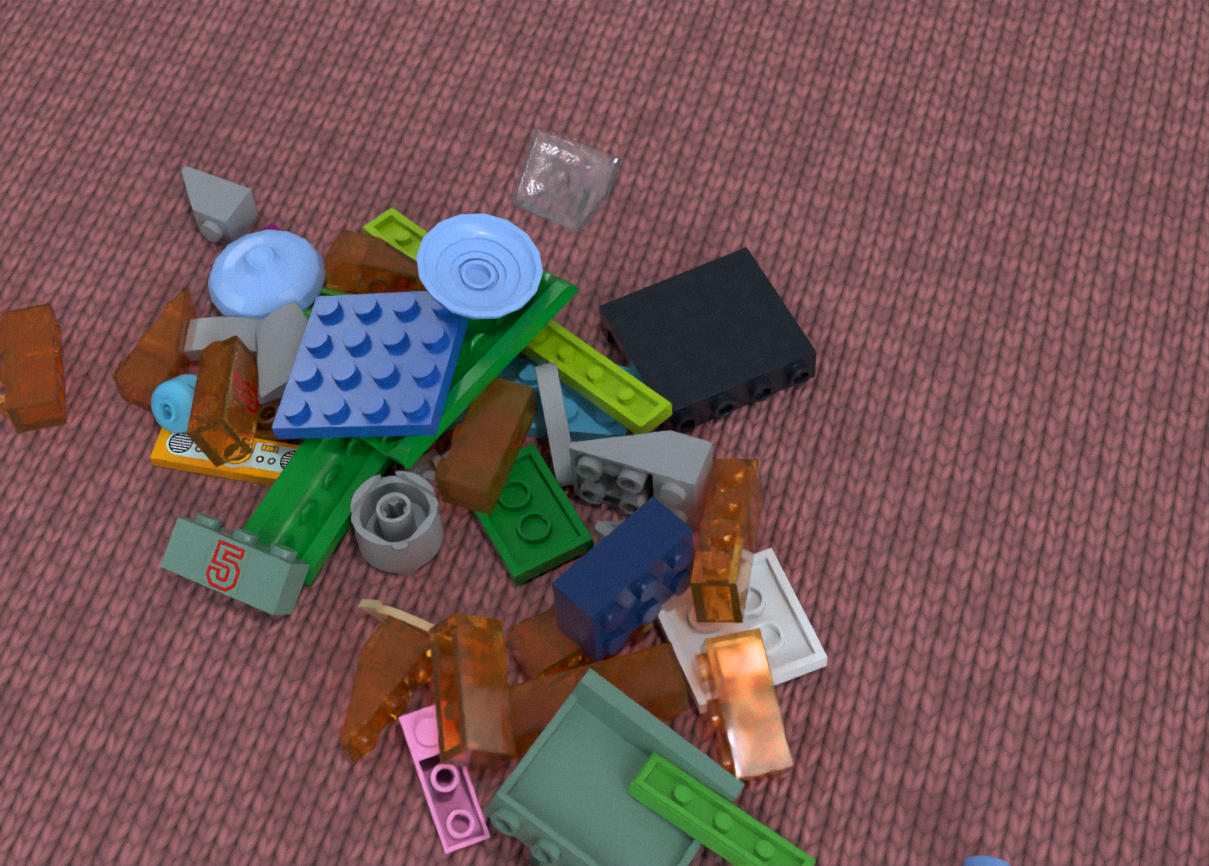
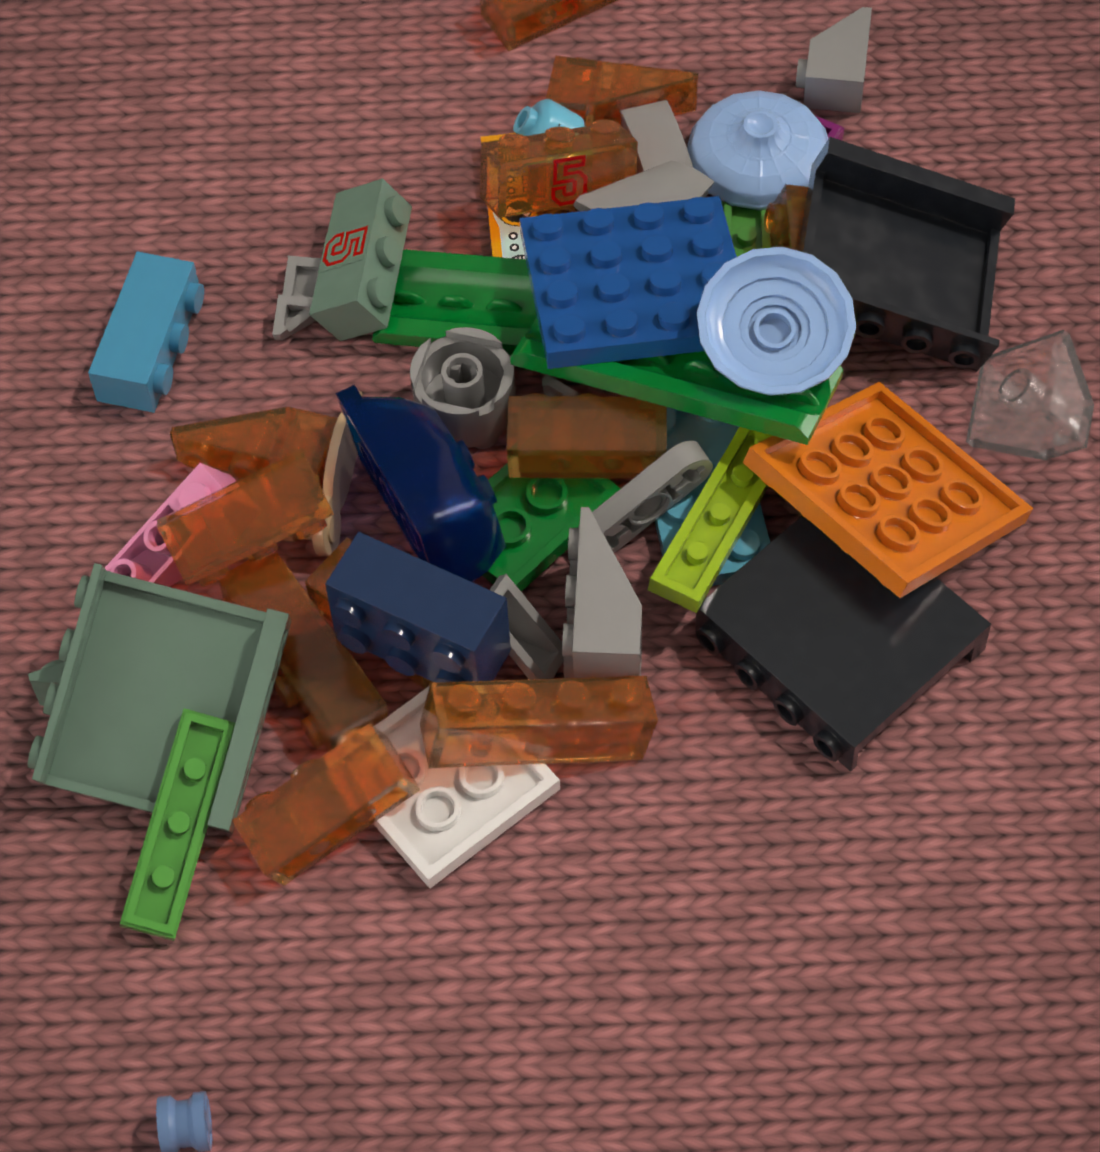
camera: 70 degrees right, 5 degrees up
(221, 751) = (146, 332): none -> dark azure brick
(236, 626) = (297, 296): none -> light grey slope
(397, 200) = (908, 250): none -> black panel
(480, 565) = (426, 482): none -> clear blue windscreen
(625, 270) = (890, 489): none -> orange plate

